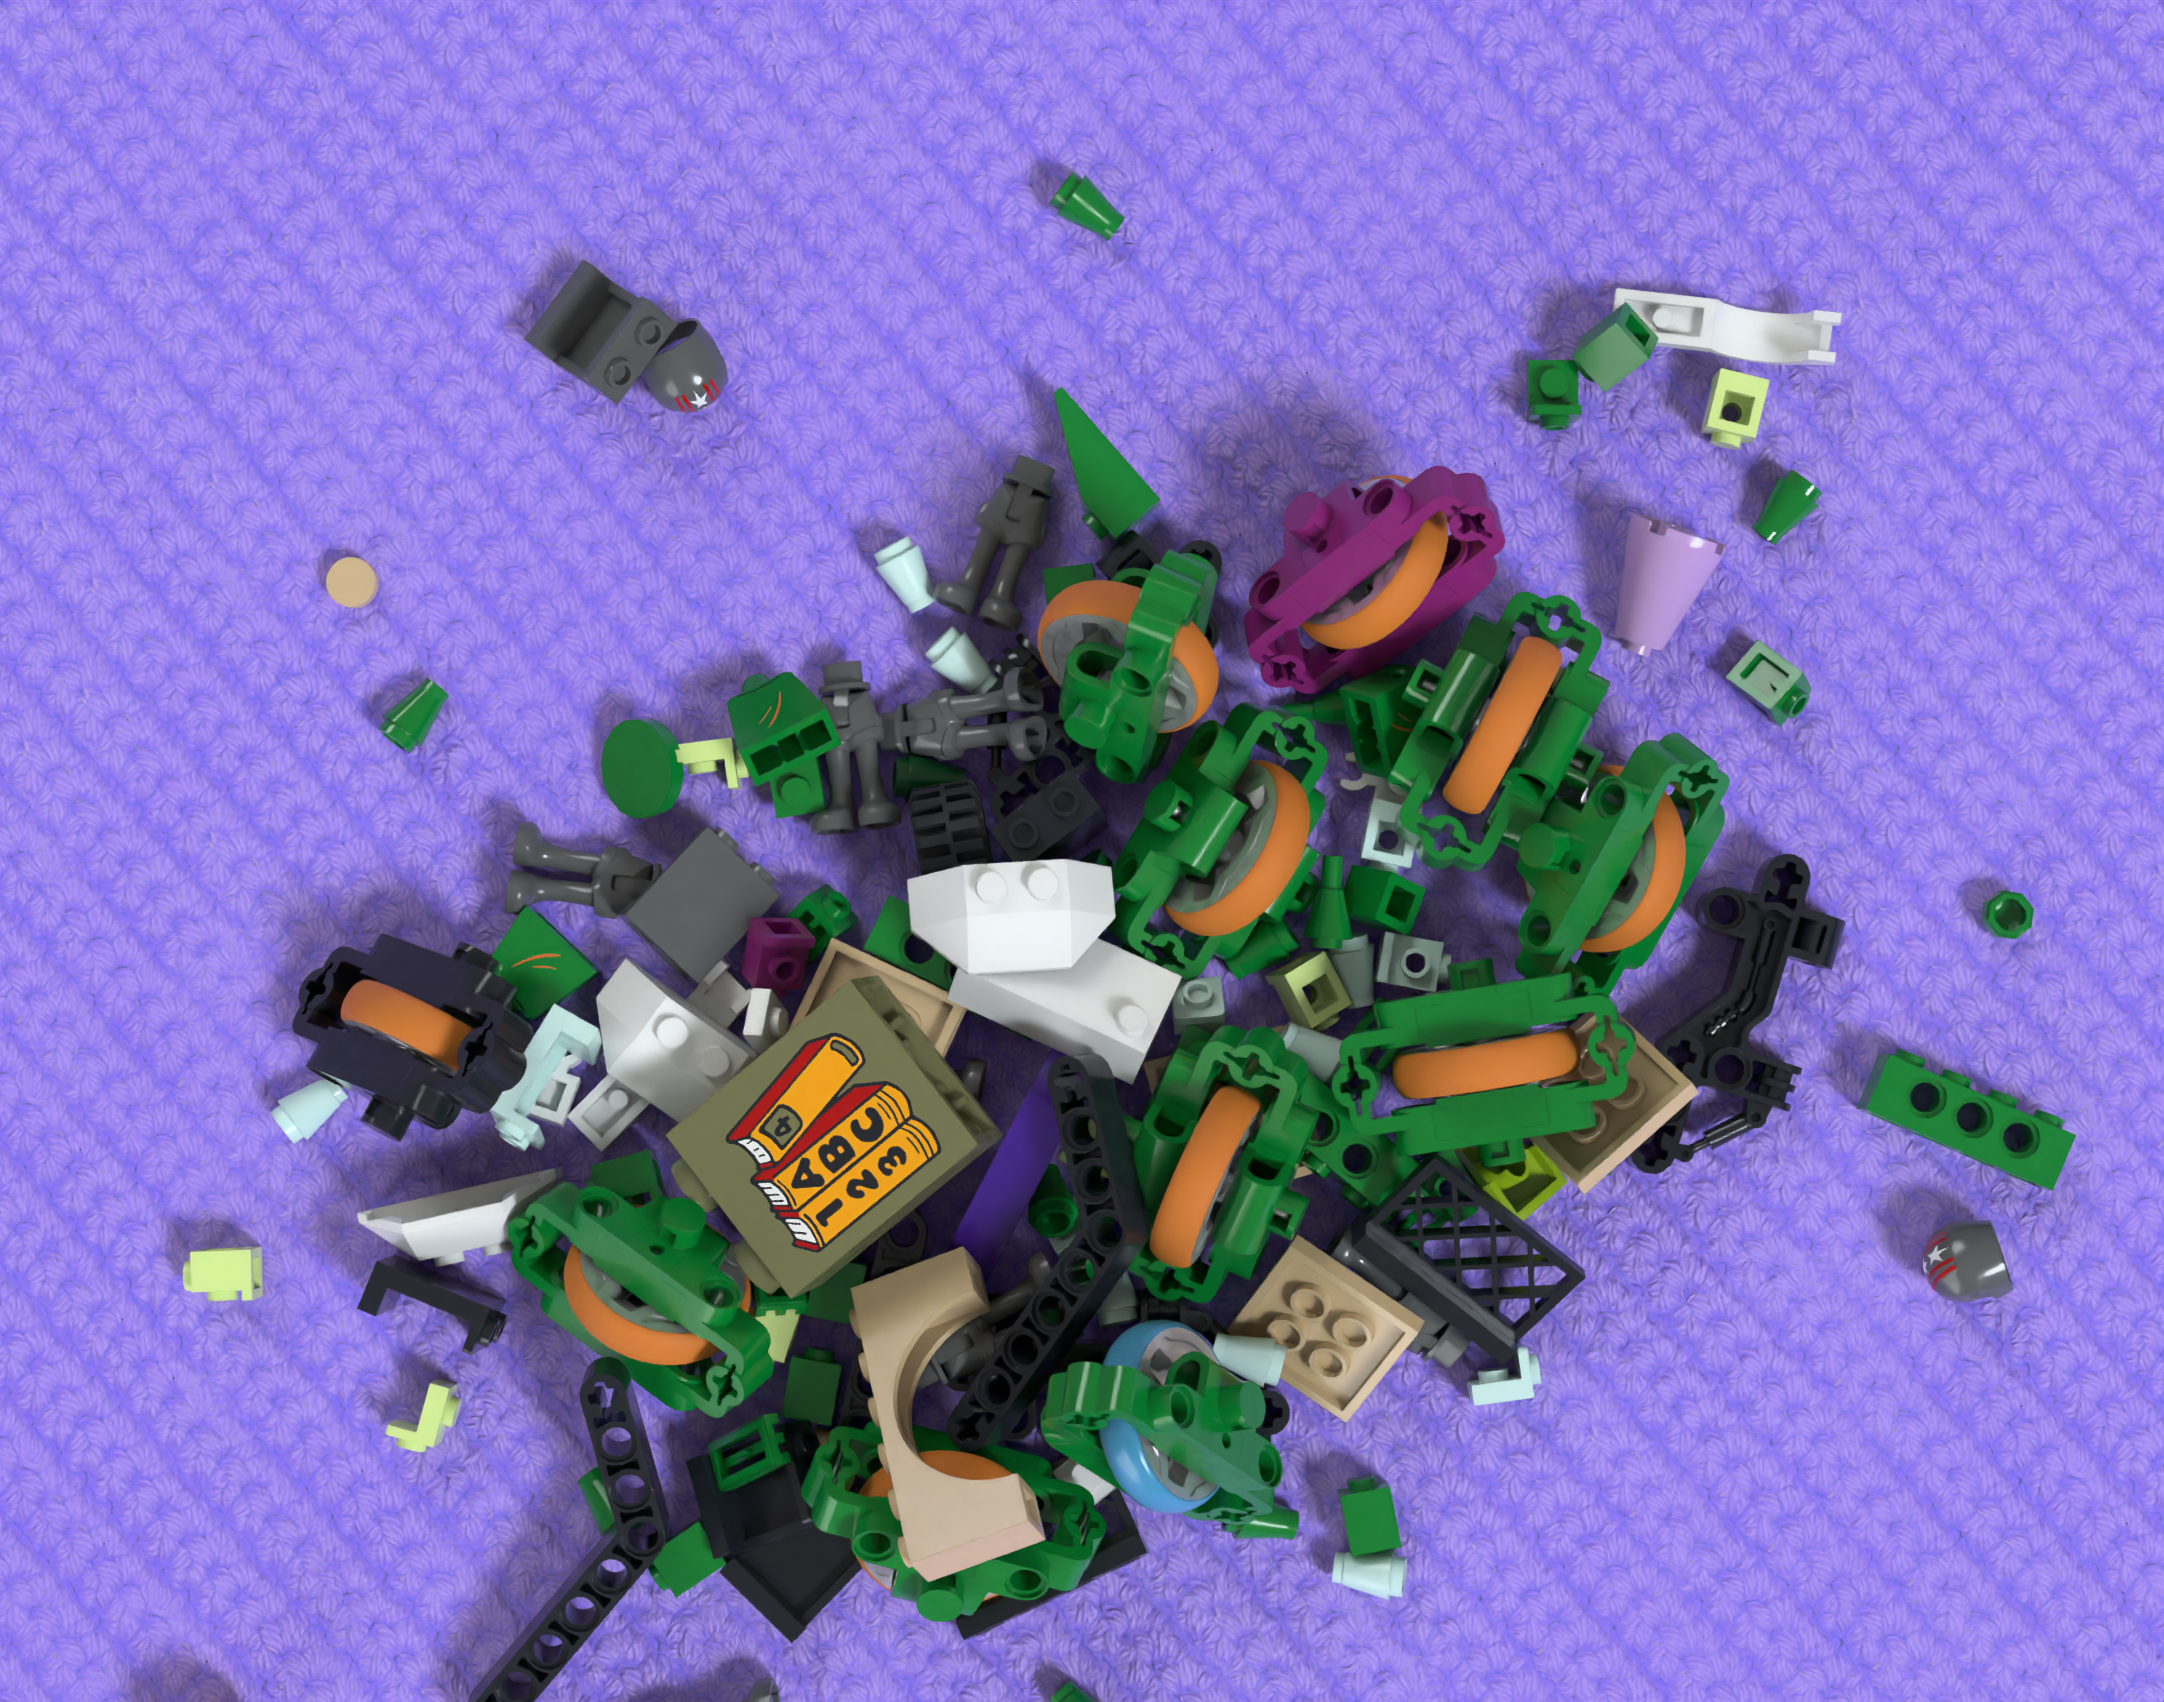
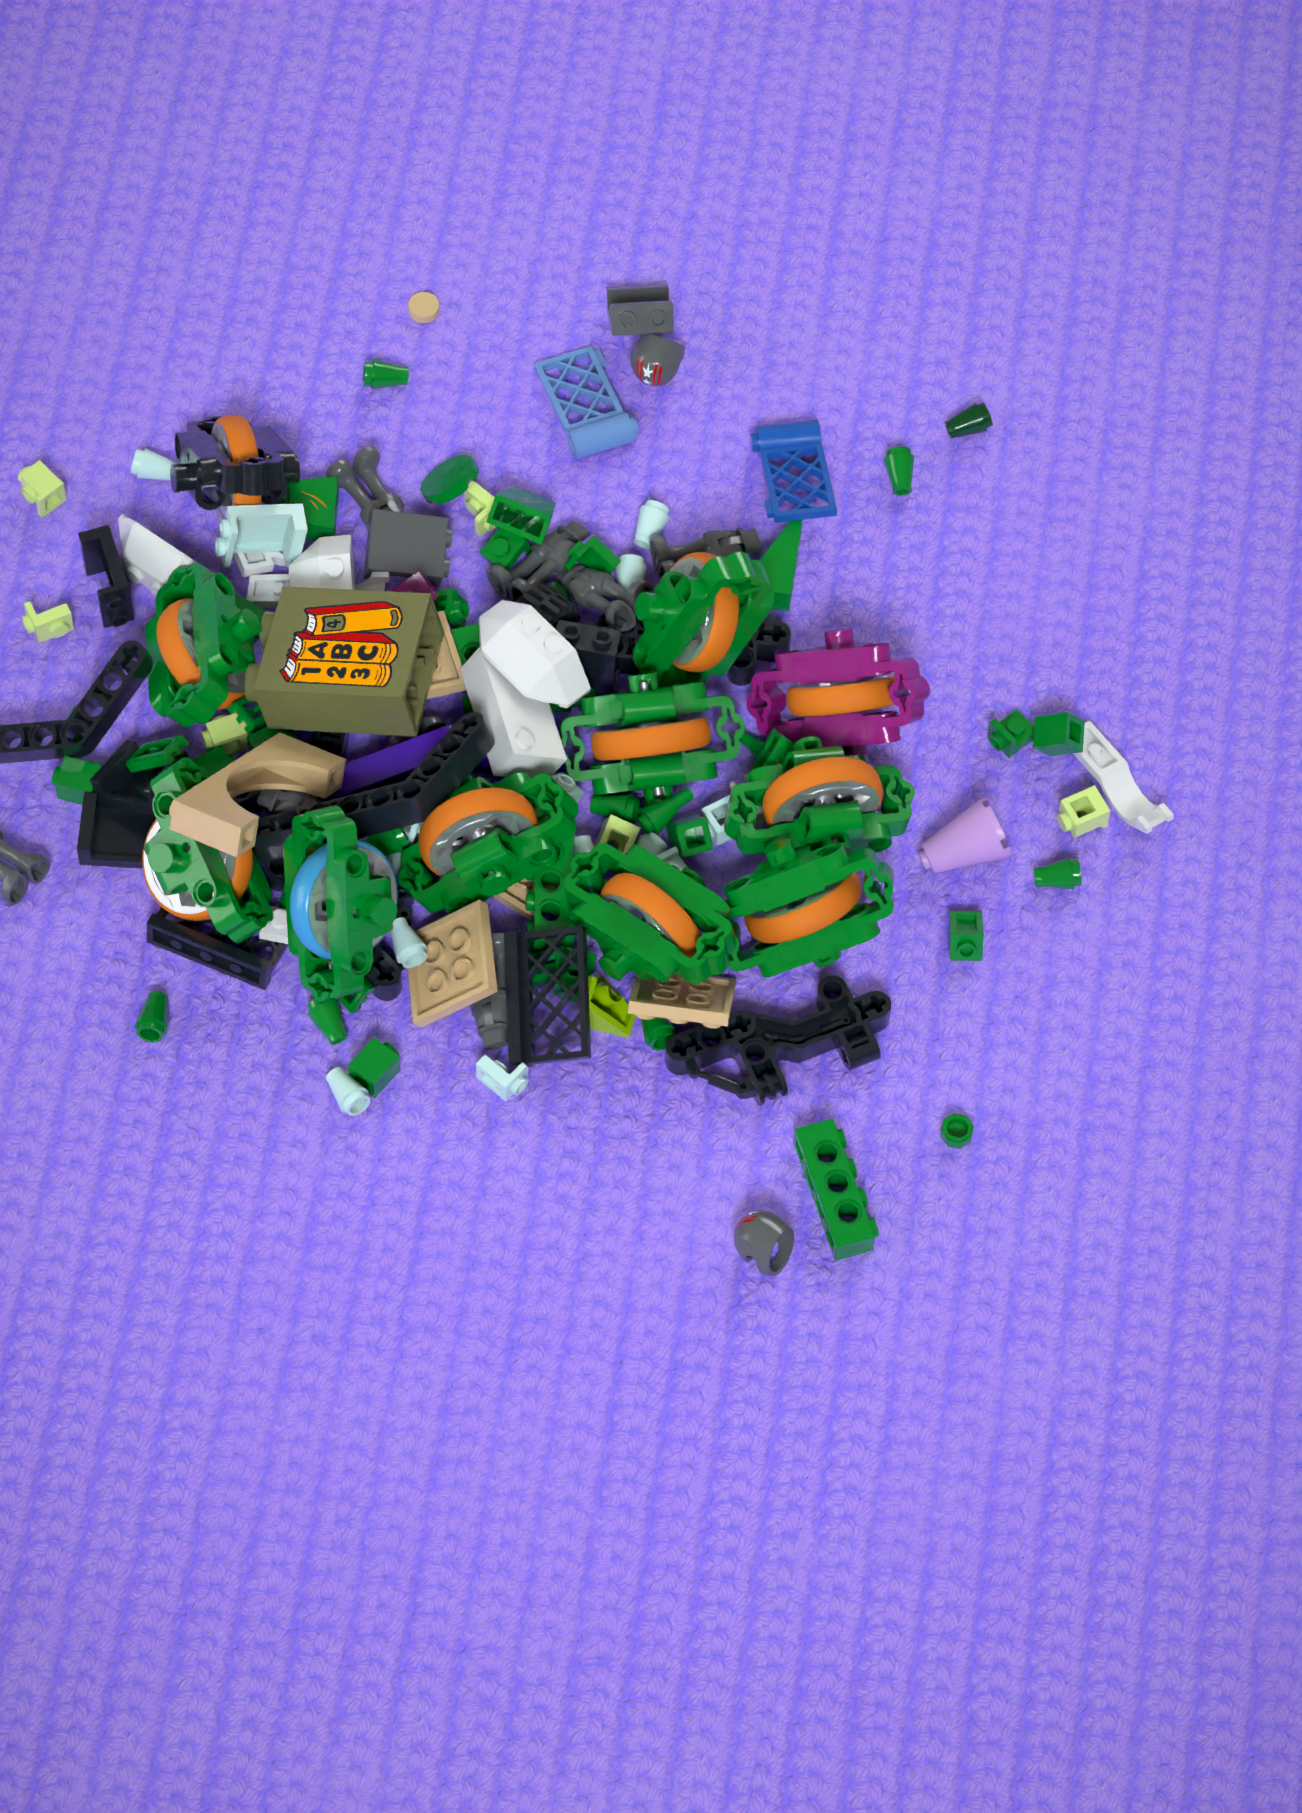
camera: 45 degrees right, 25 degrees down
(725, 516) = (597, 430): none -> medium blue piece
(902, 685) = (593, 555): none -> green bracket
(930, 316) = (790, 443): none -> blue piece
(1090, 62) = (969, 421): none -> dark green cone

